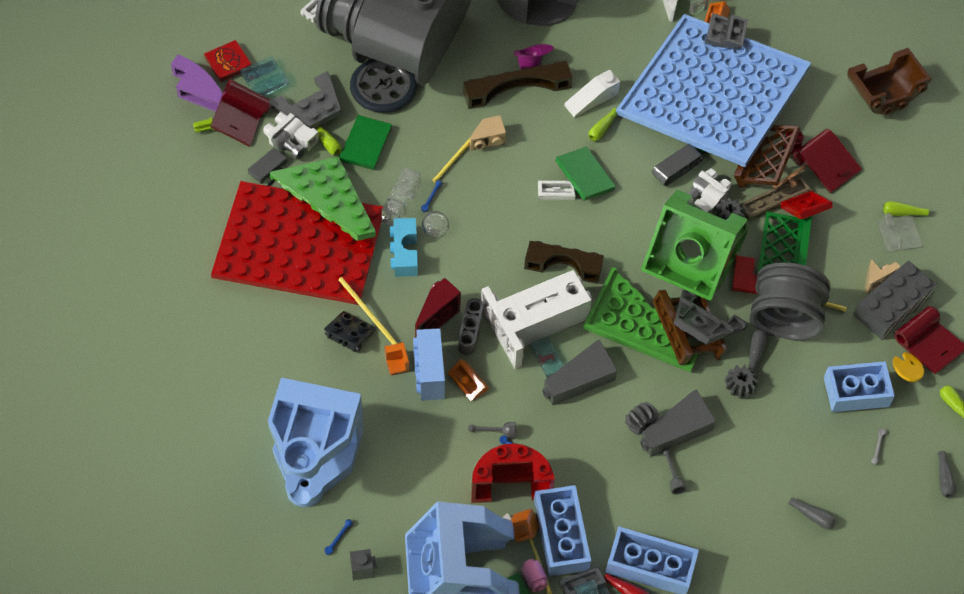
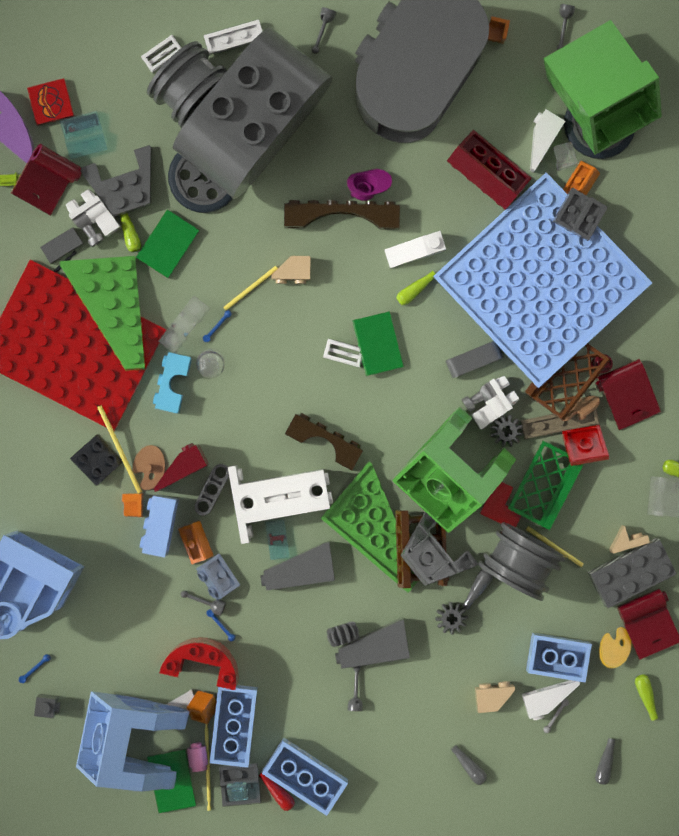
camera: 20 degrees right, 30 degrees up
(402, 321) = (149, 460): none -> medium nougat piece
(499, 402) = (217, 577): none -> sand blue bracket
(633, 23) = (489, 169): none -> dark red slope
(808, 442) = (492, 698): none -> tan slope
(858, 433) = (546, 699): none -> white slope

